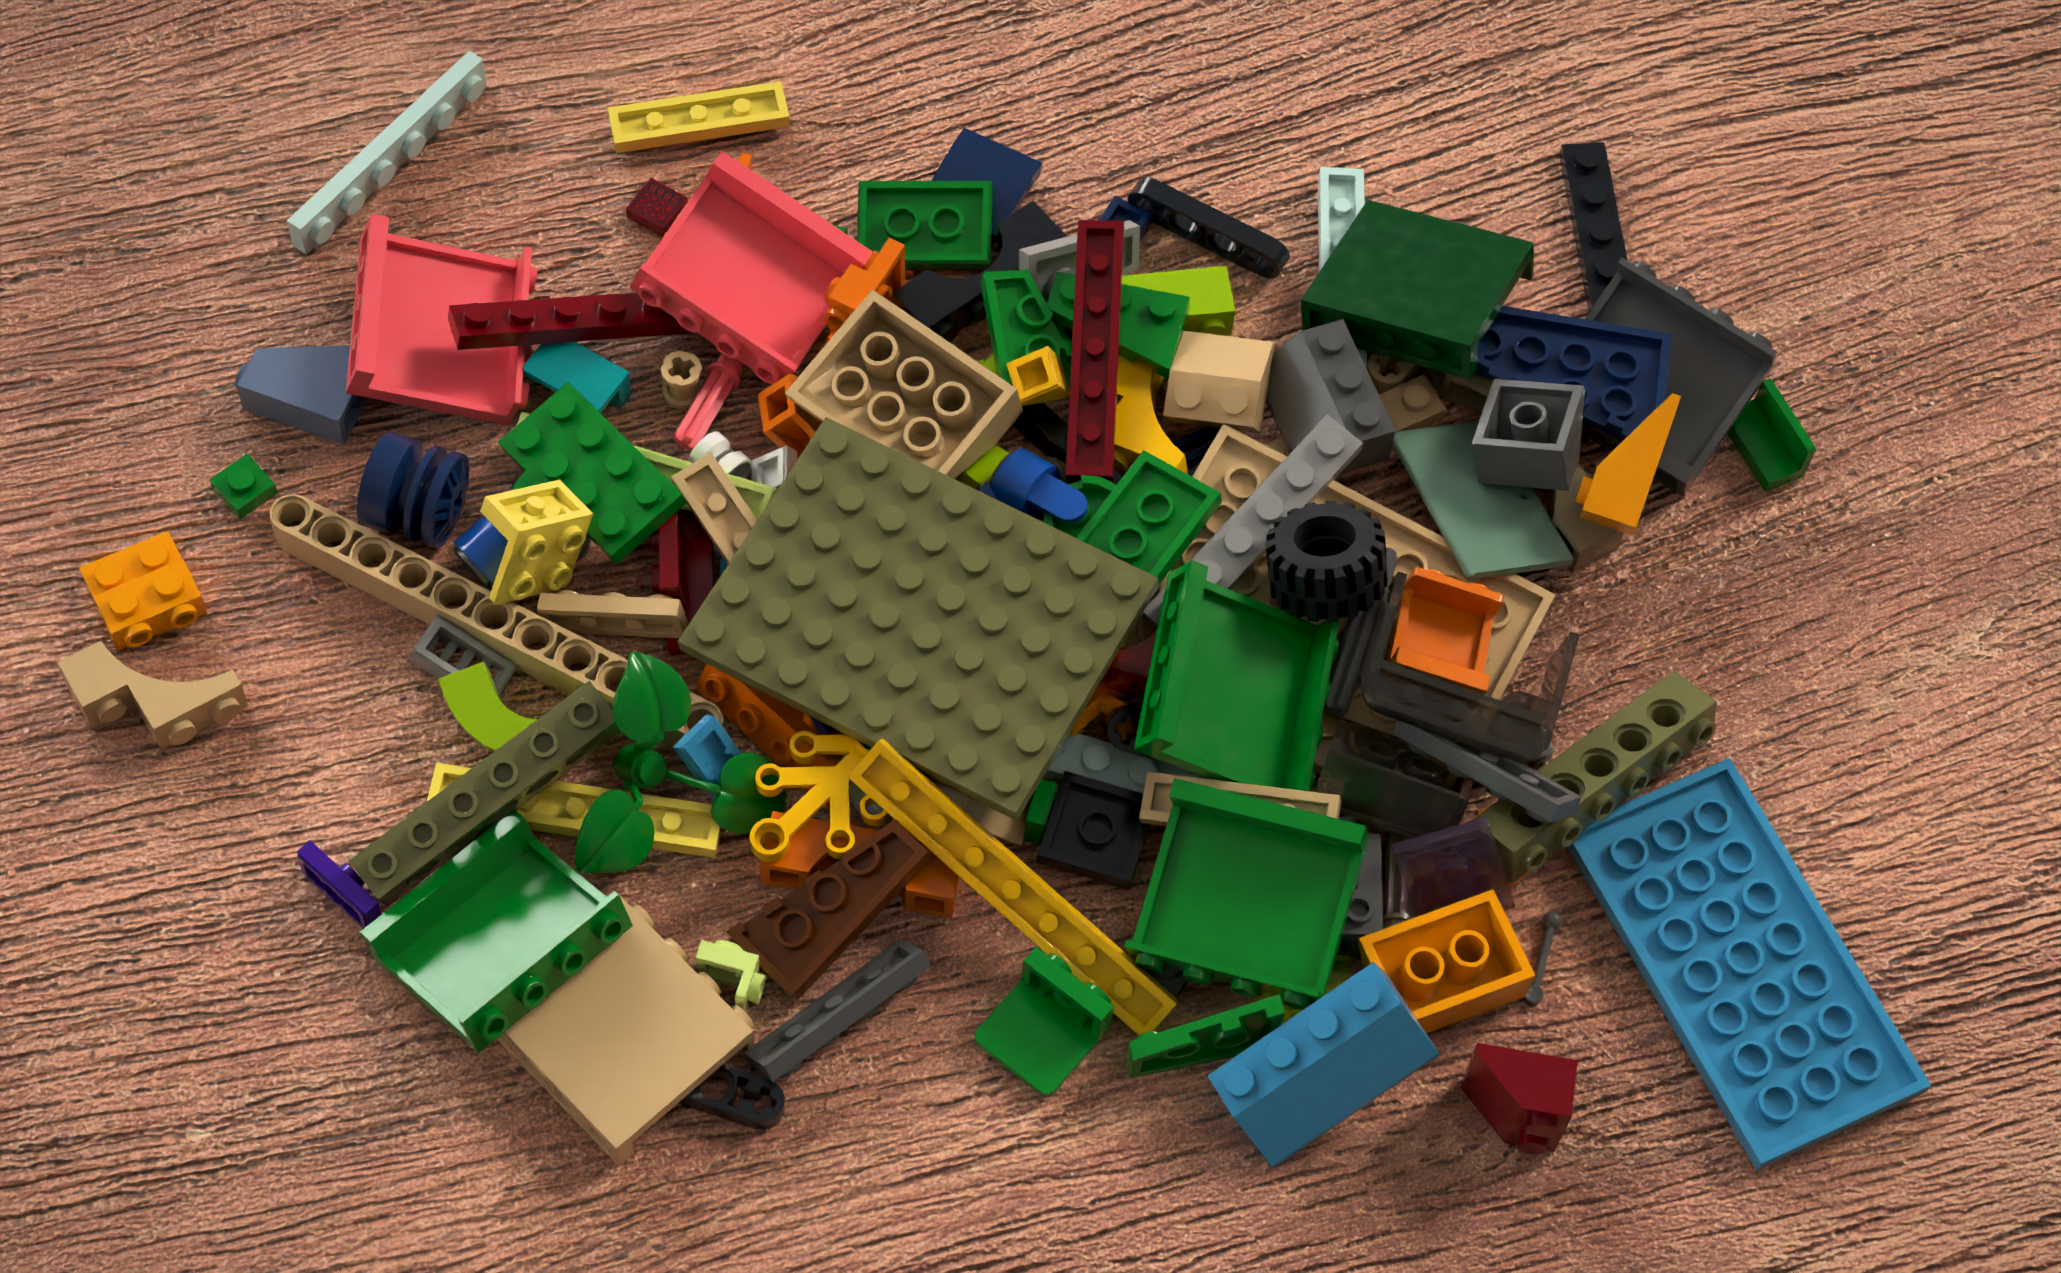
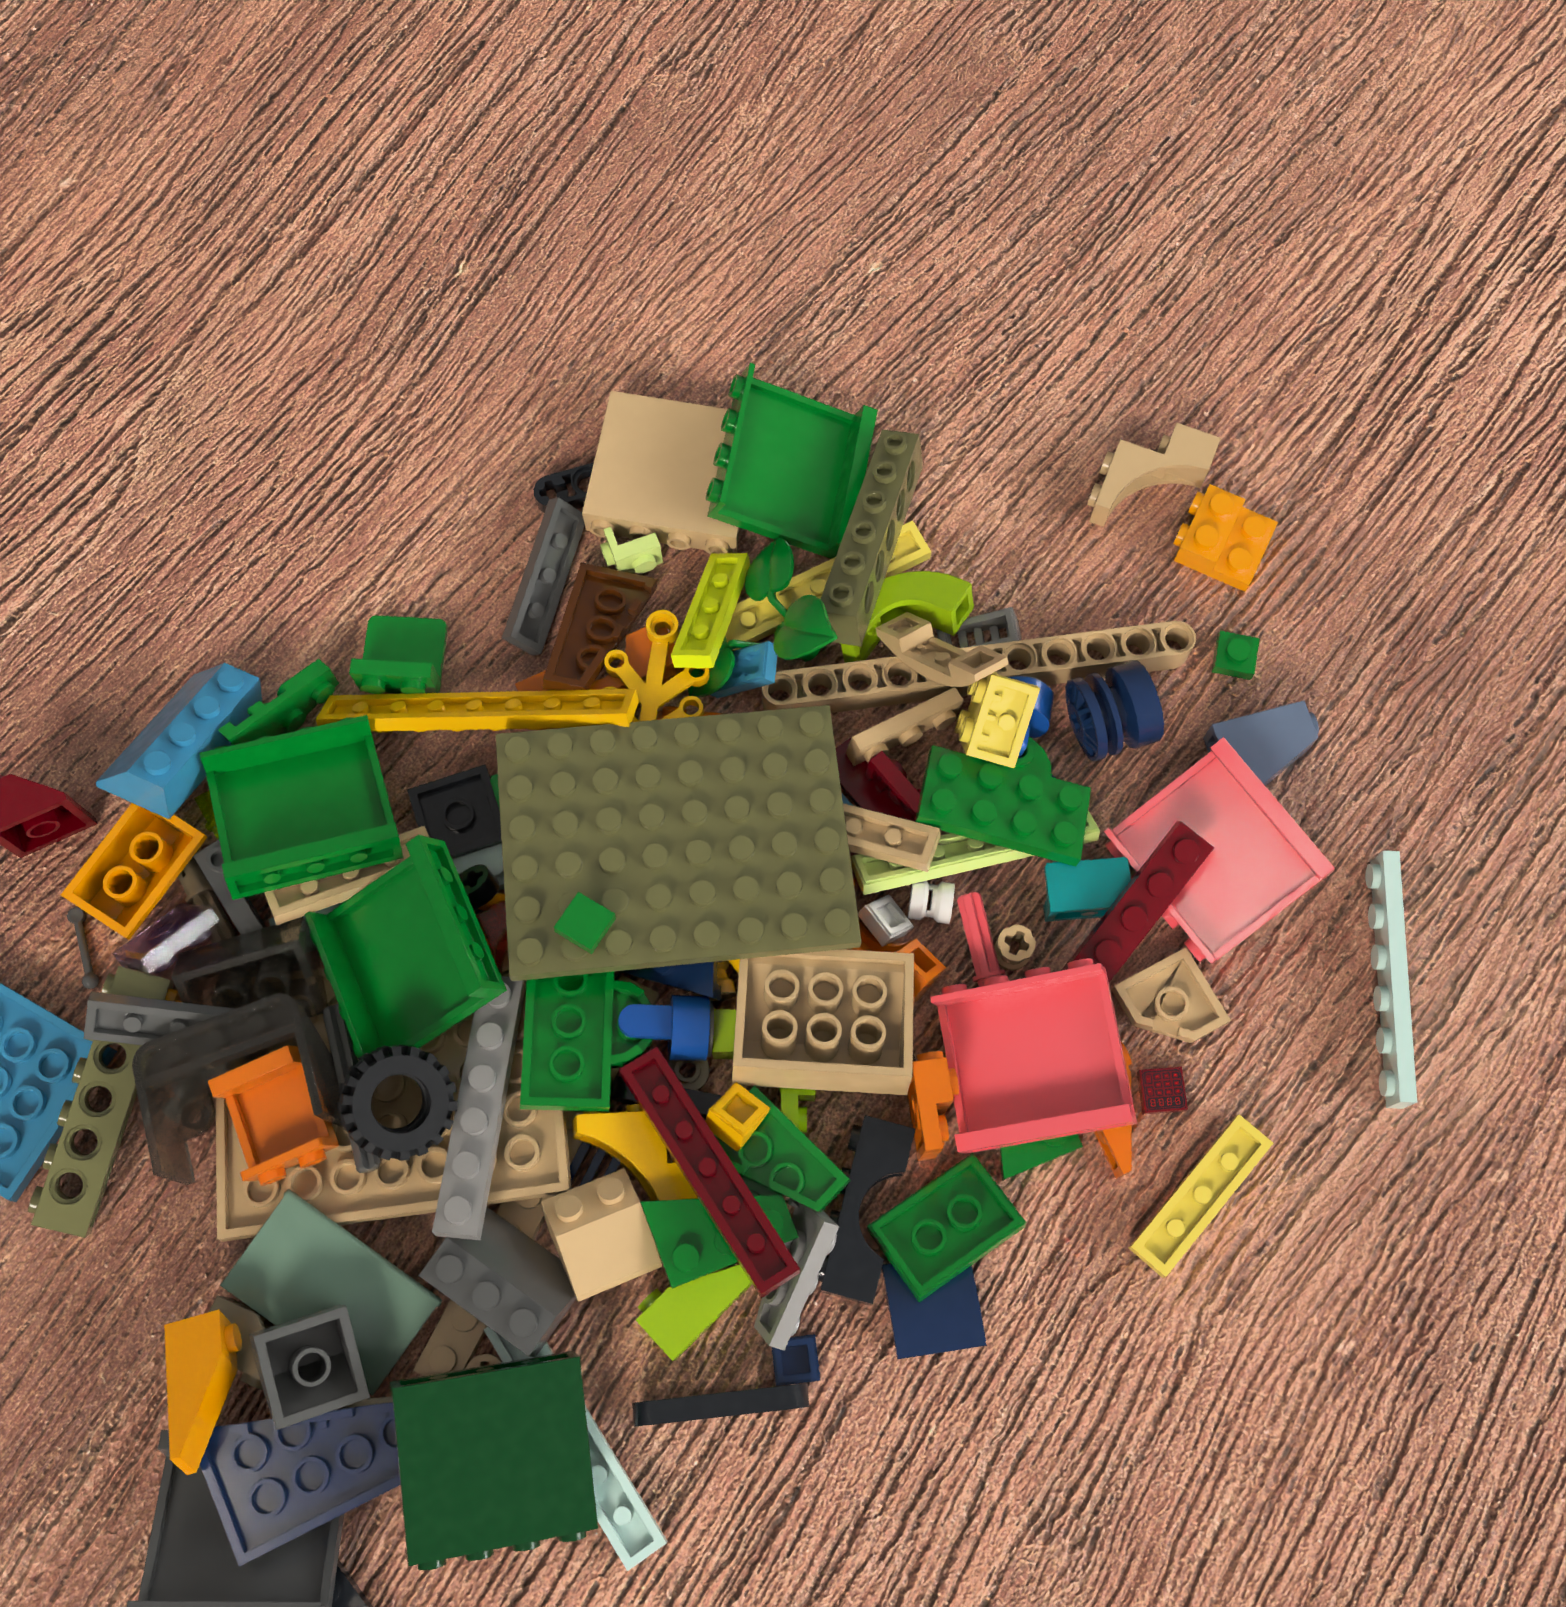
camera: 150 degrees right, 10 degrees up
(339, 884) = (934, 439): dark purple plate -> none
(535, 615) = (937, 660): none -> tan slope
(583, 257) = (1172, 999): none -> tan plate
(705, 833) = (711, 611): none -> neon yellow plate
(1059, 567) = (584, 922): none -> green tile
(1772, 439) = (112, 1546): green panel -> none

